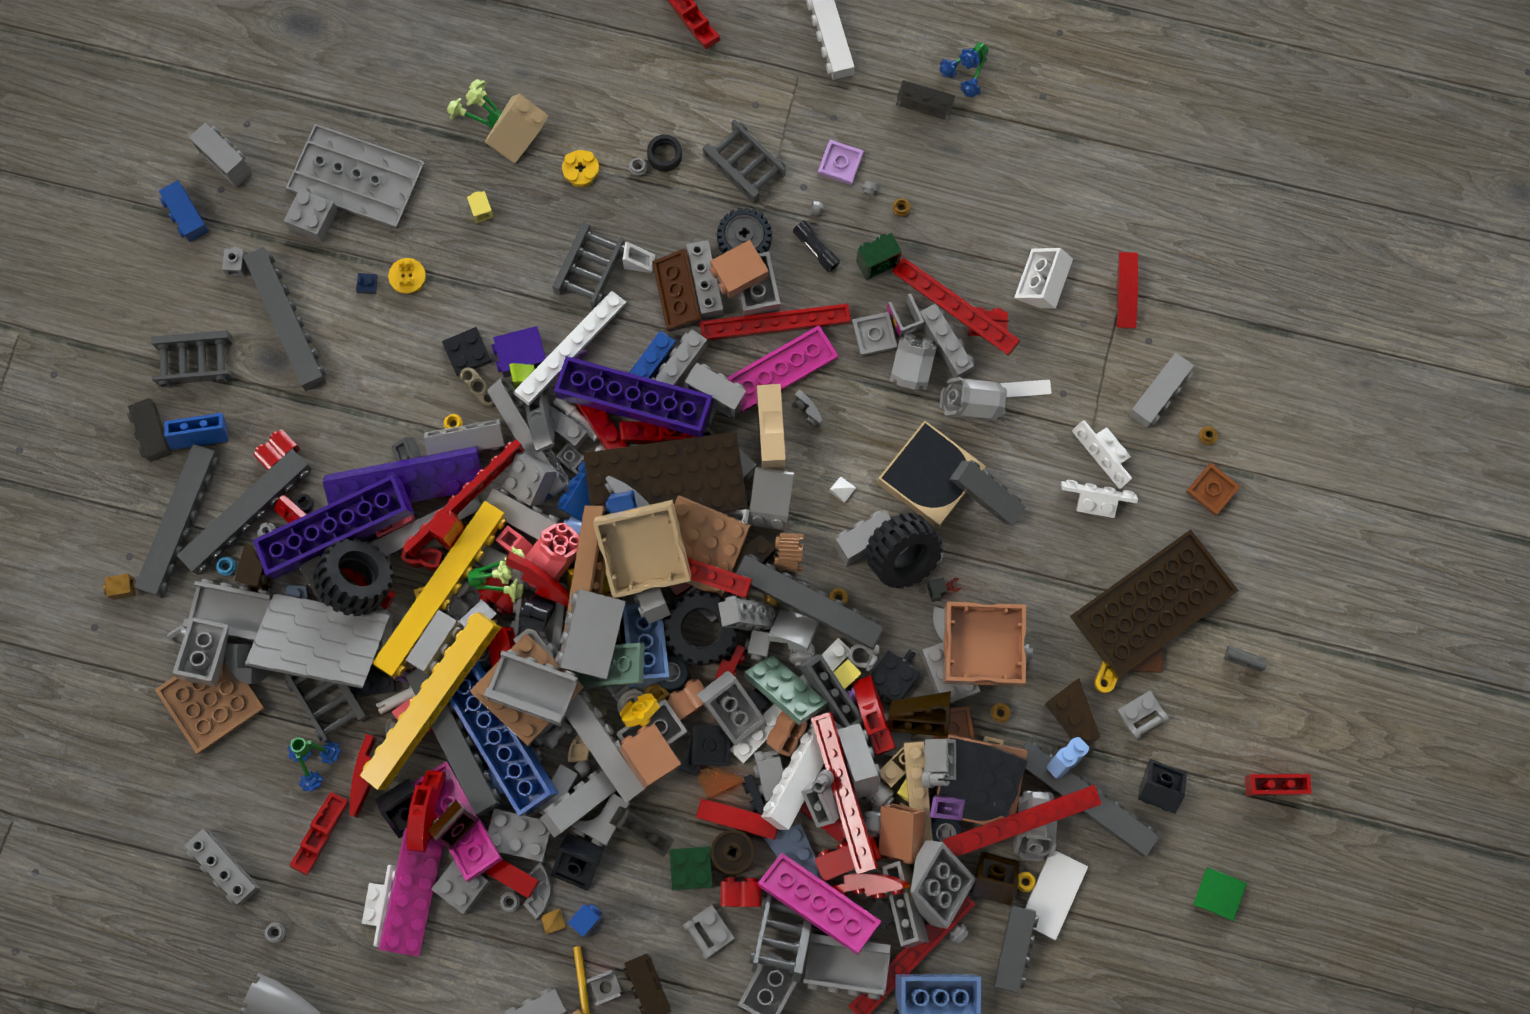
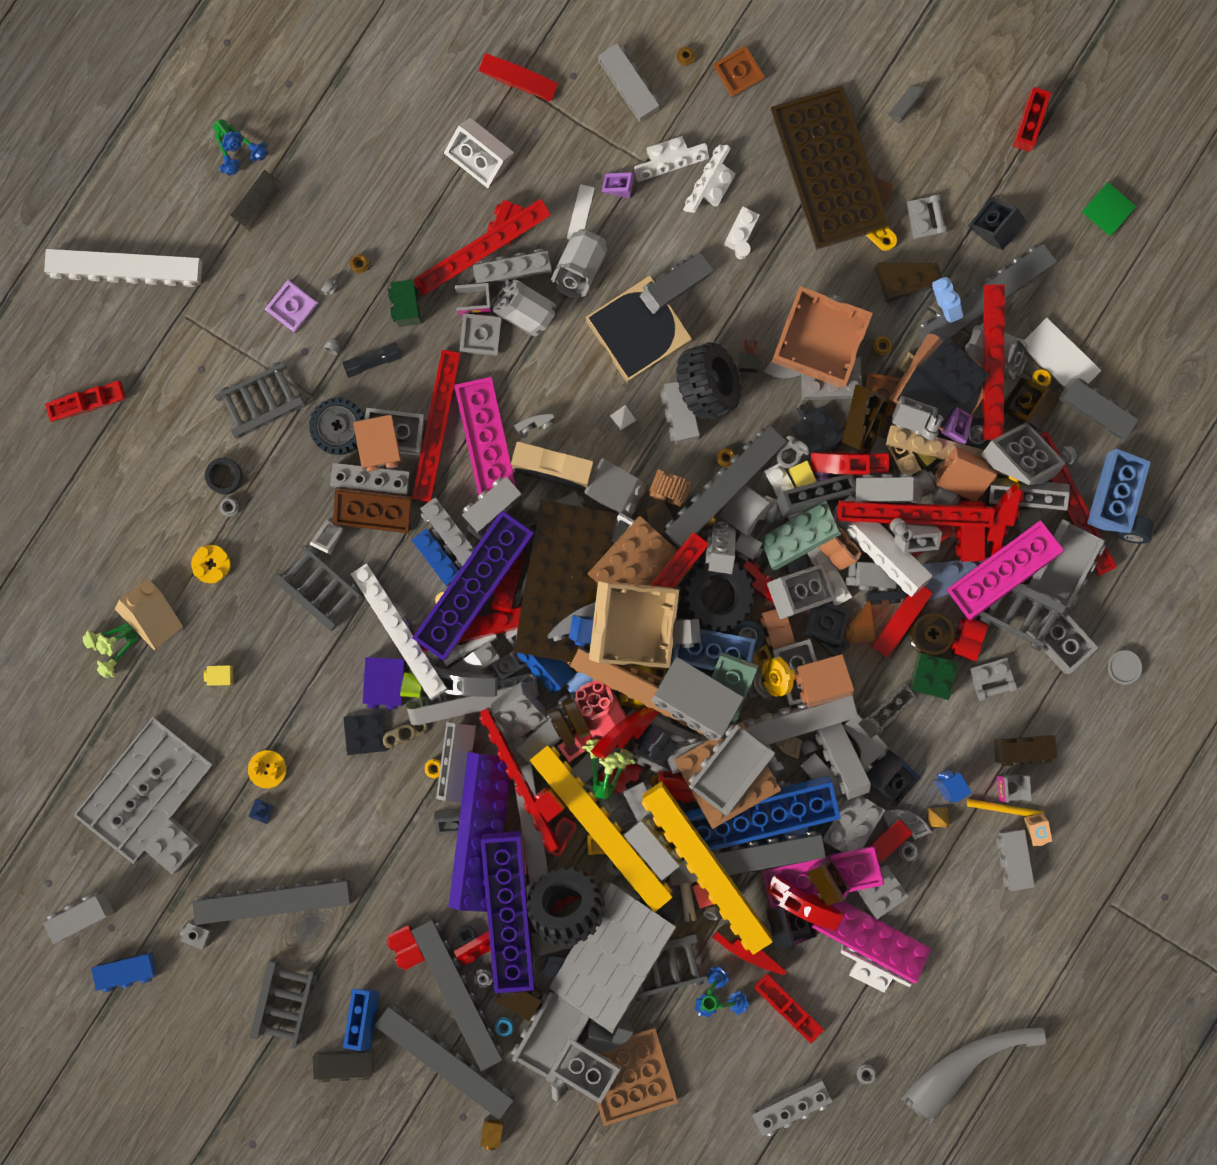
camera: 75 degrees left, 10 degrees up
(531, 523) = (568, 721): none -> dark brown wheel
(1060, 540) = (741, 232): none -> white hinge
(1062, 414) = (618, 184): none -> medium lavender slope

